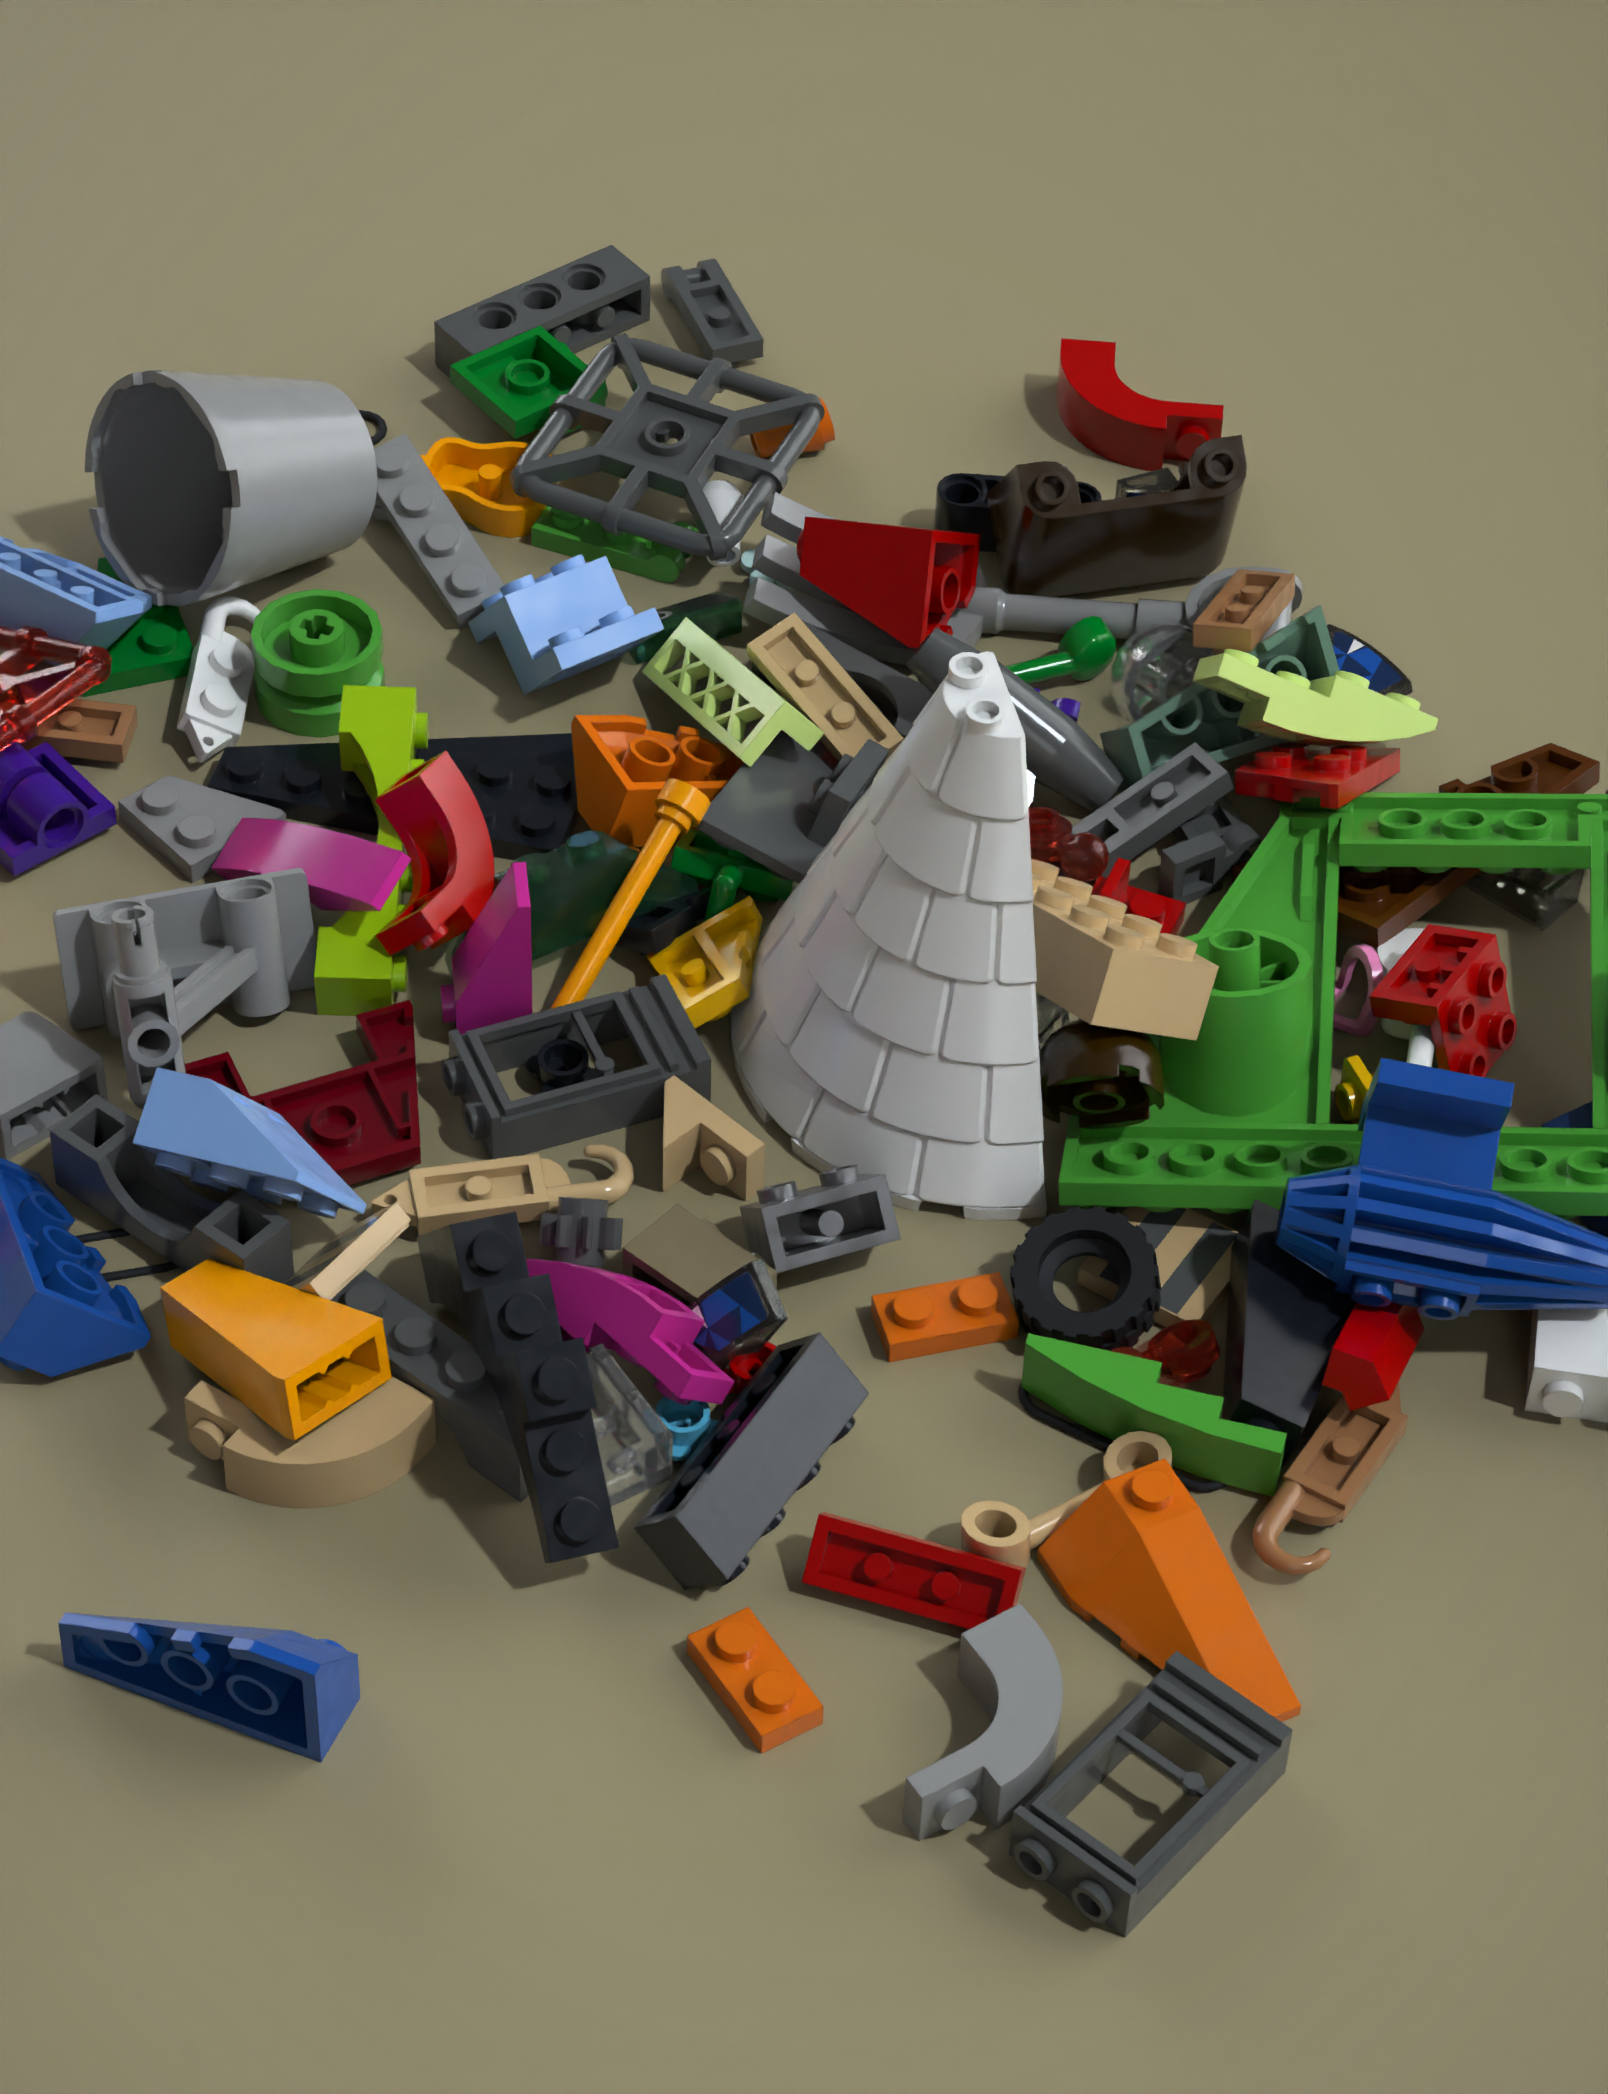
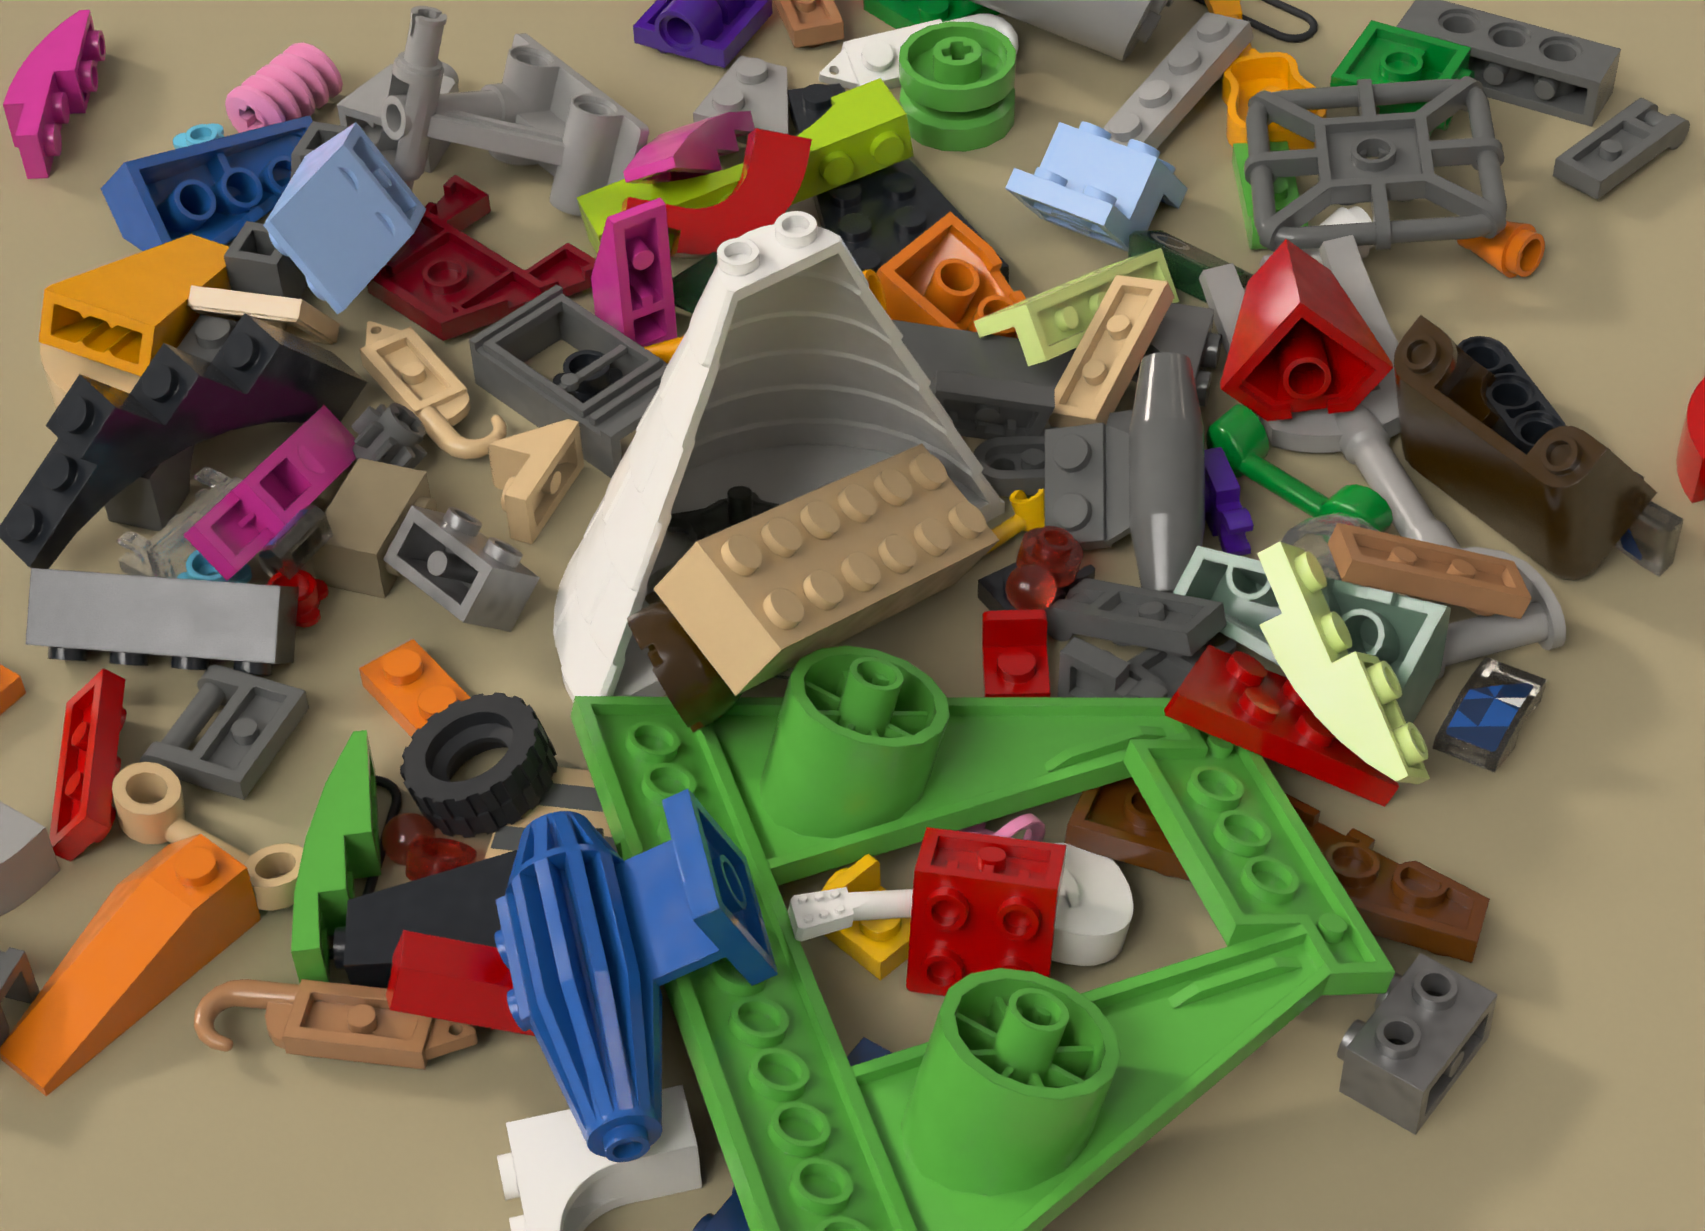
camera: 70 degrees right, 0 degrees up
(929, 1449) = (242, 737): none -> dark grey plate

